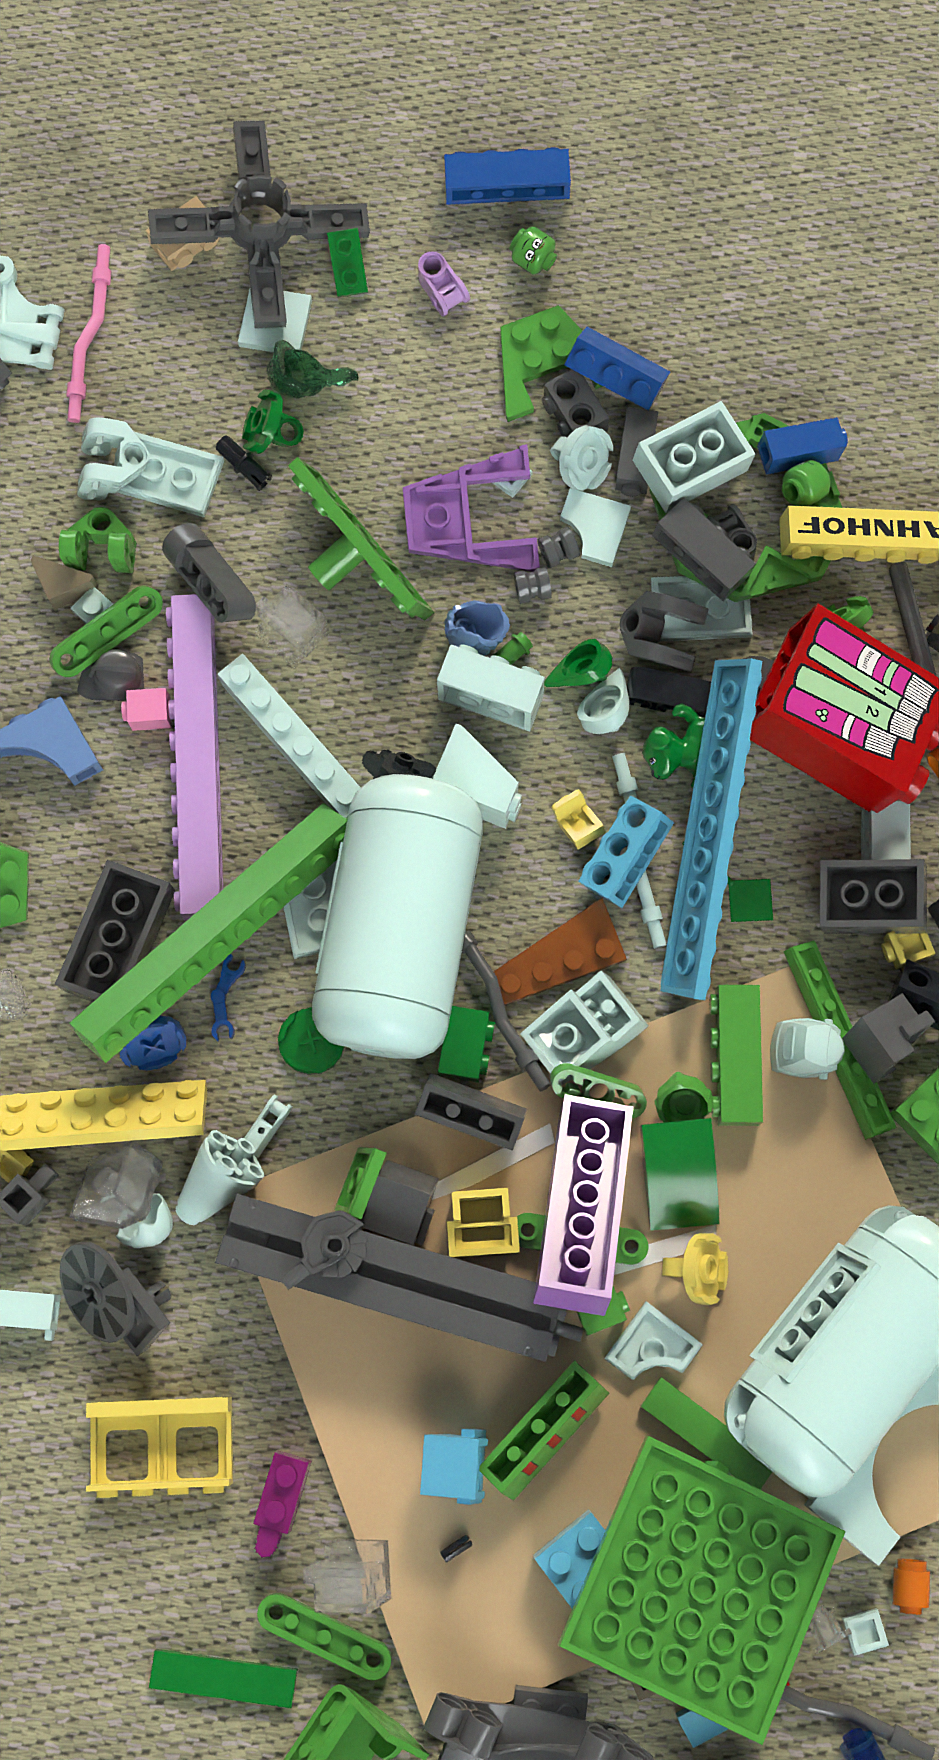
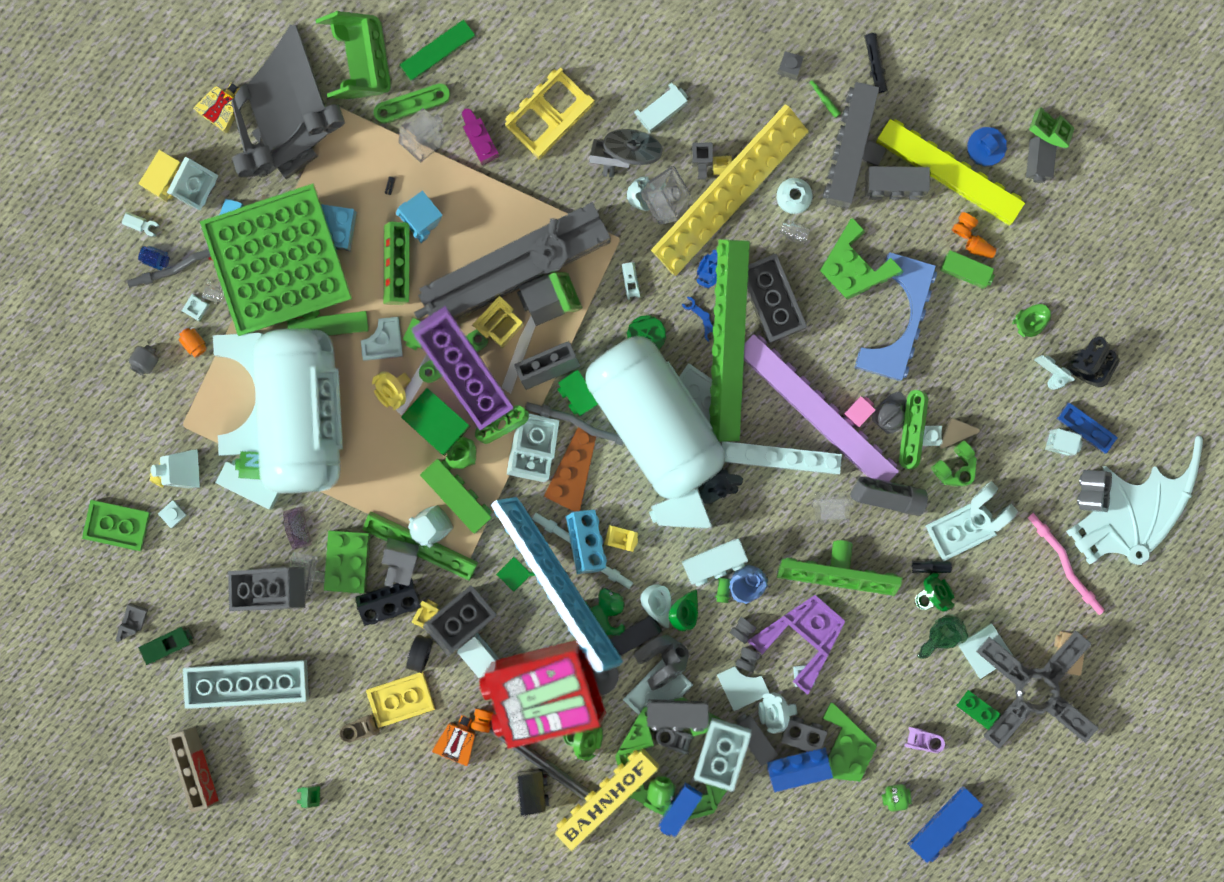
camera: 135 degrees right, 10 degrees up
(217, 1175) = (628, 240): light aqua cone -> none

